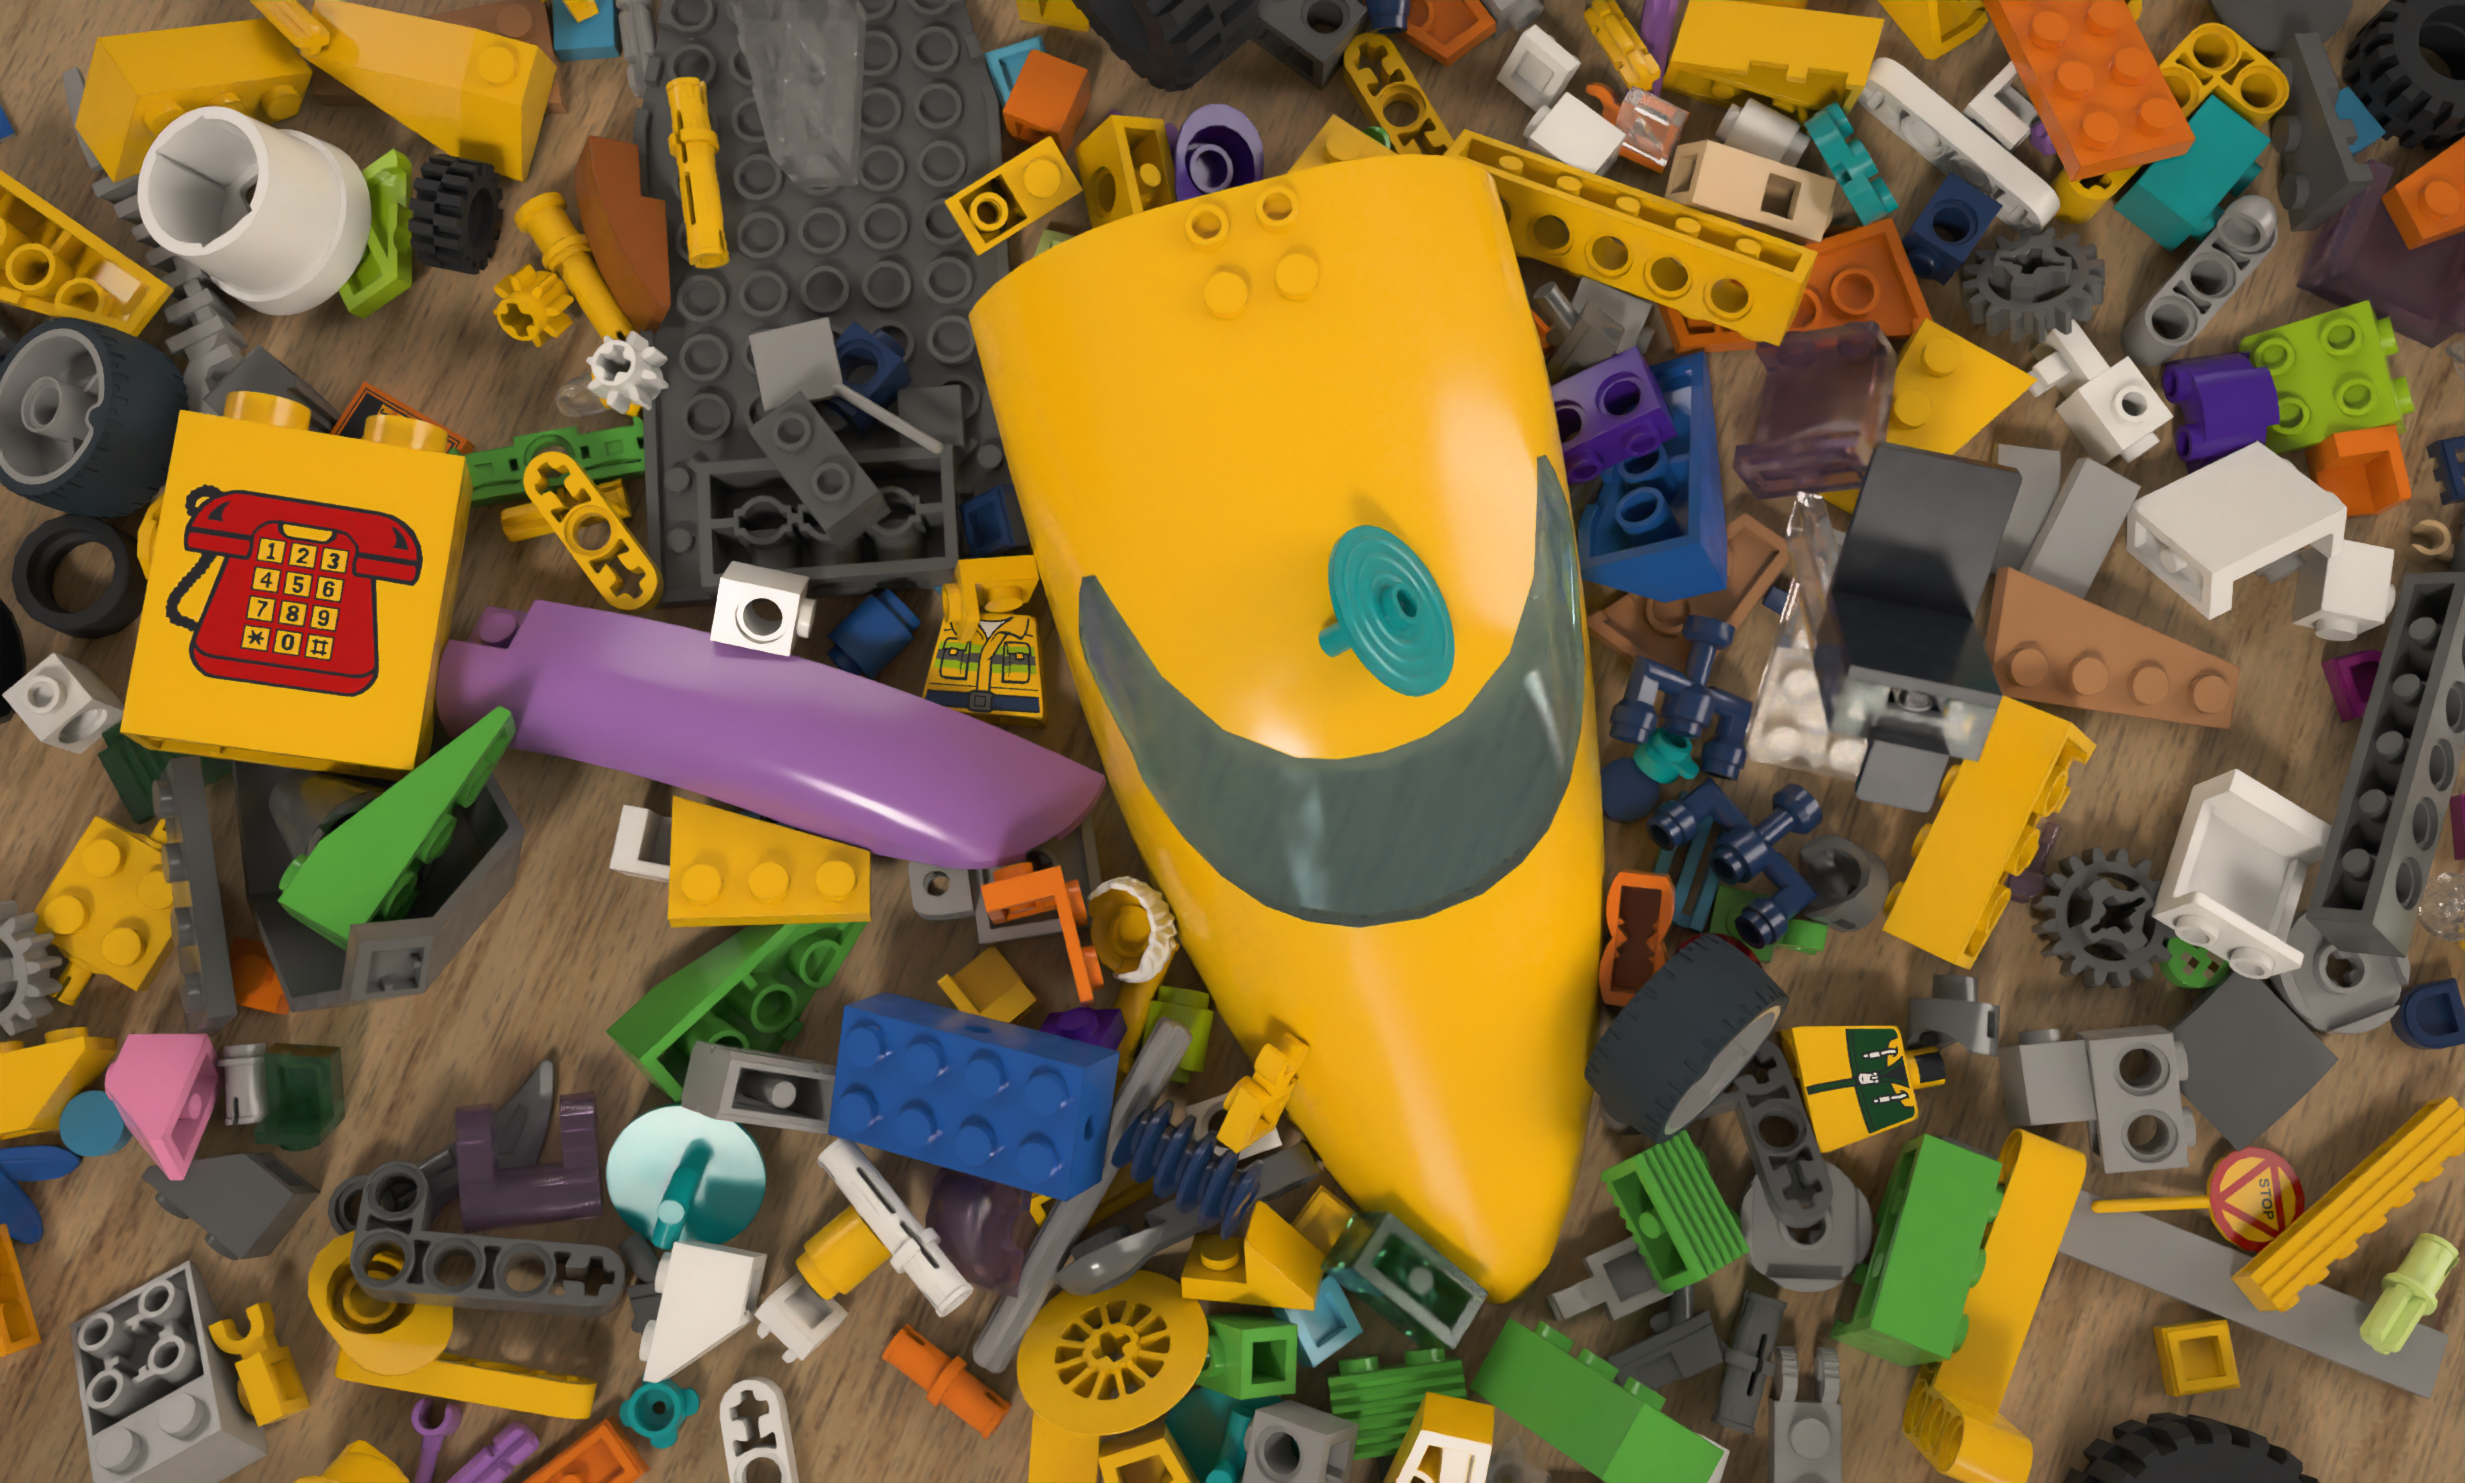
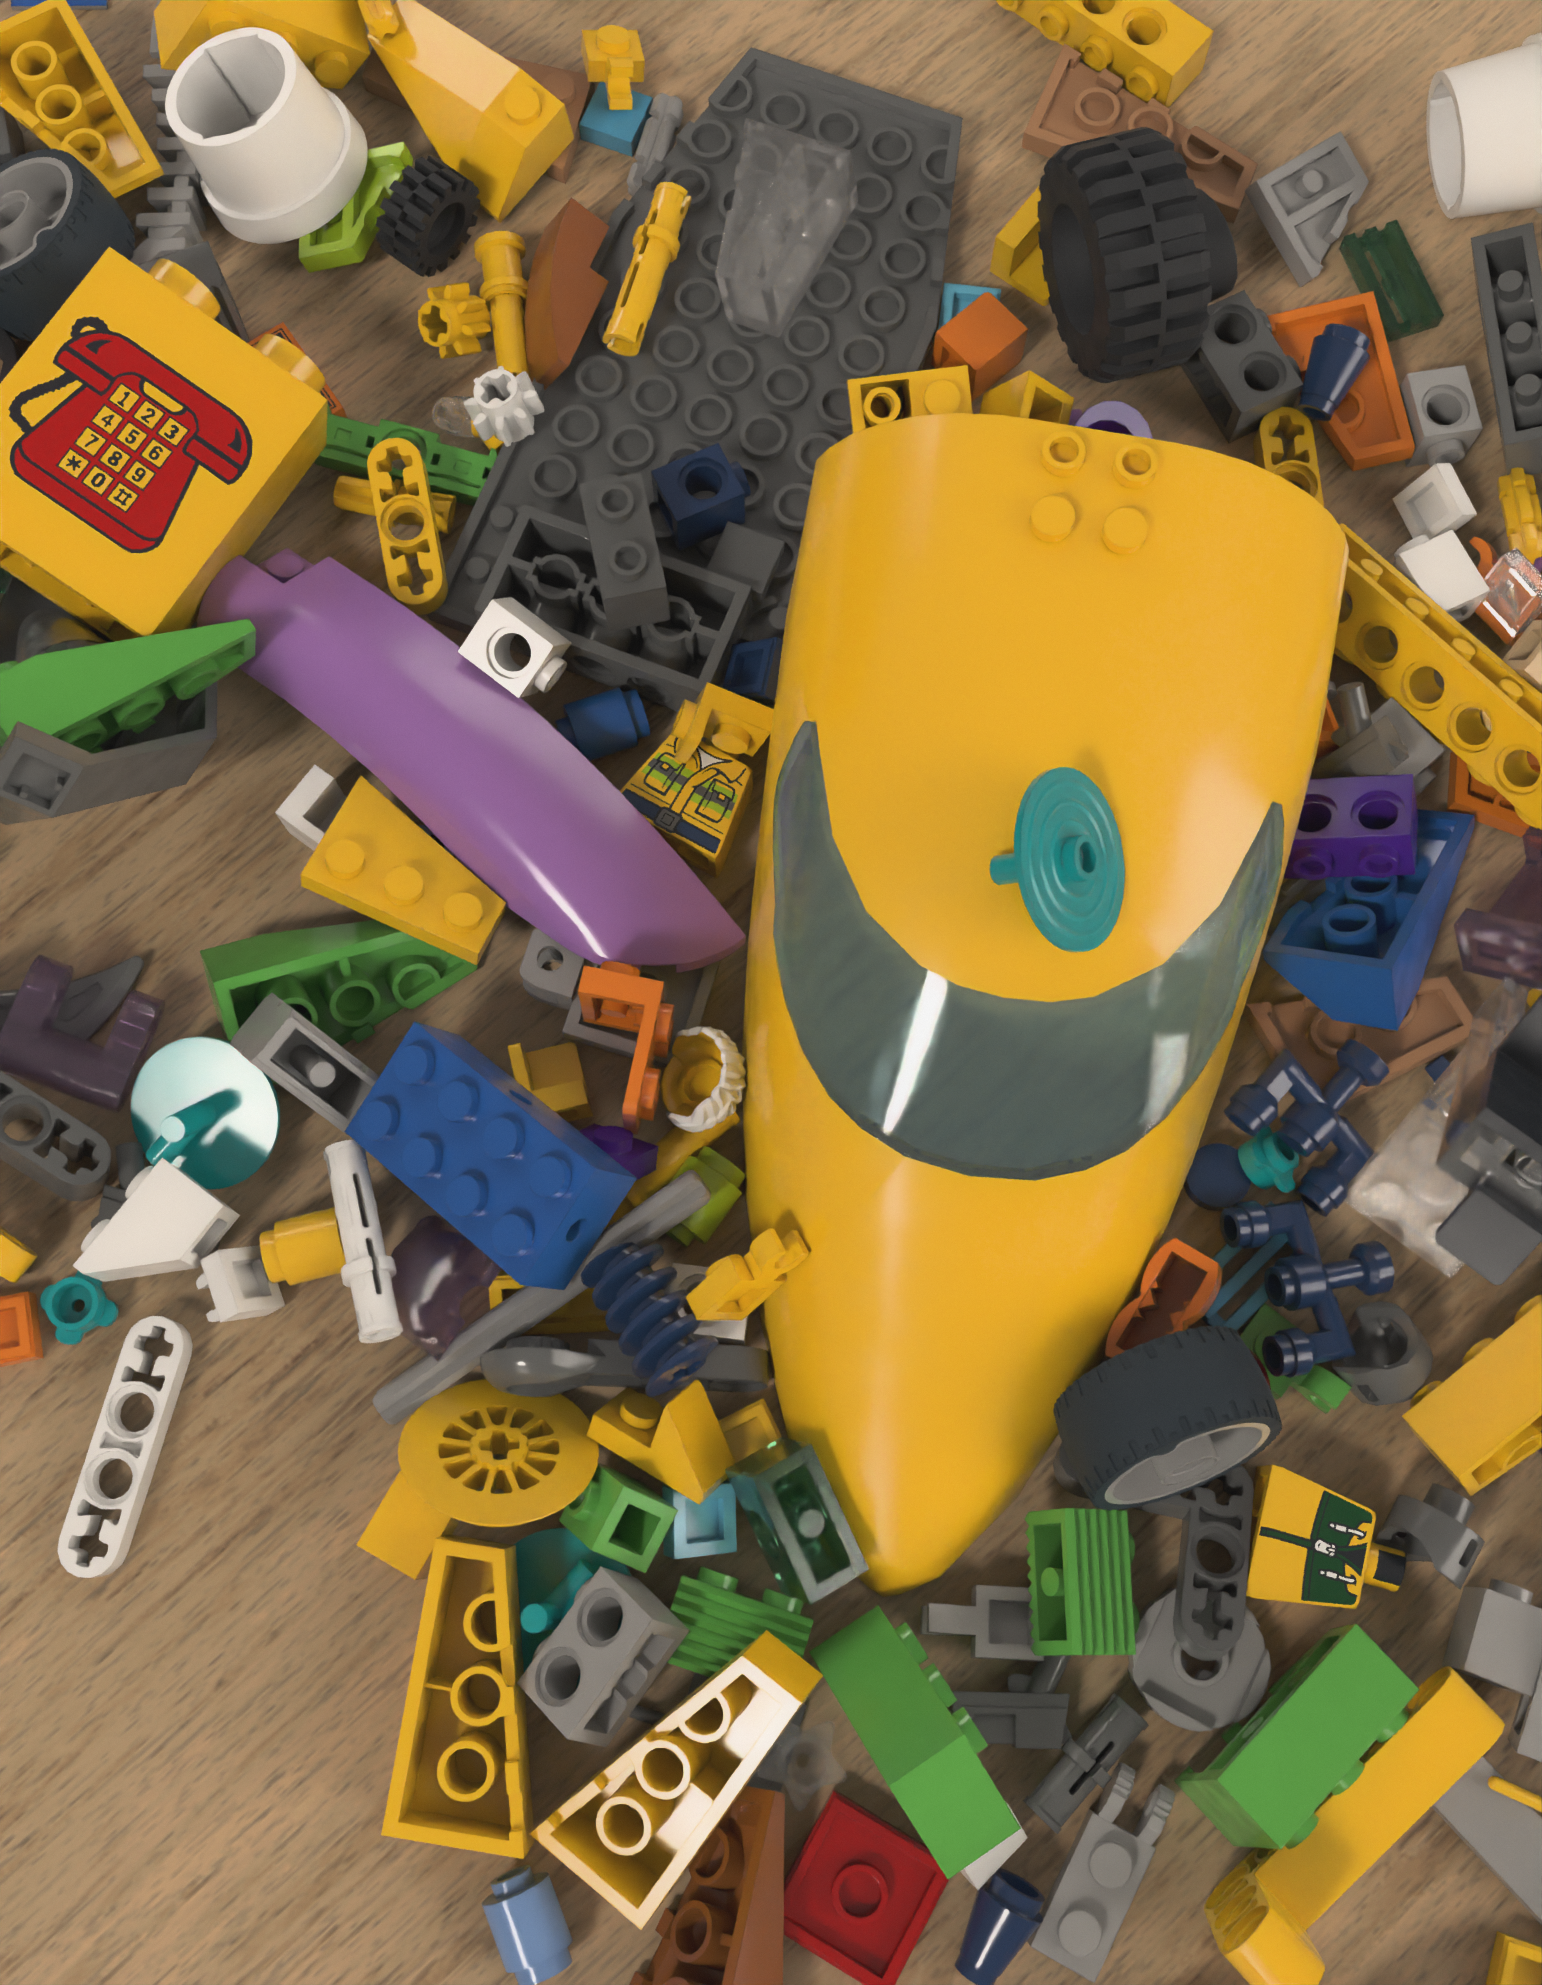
camera: 25 degrees right, 5 degrees down
(807, 360) = (663, 457): light grey piece -> none
(947, 1381) = (339, 1408): orange pin -> none

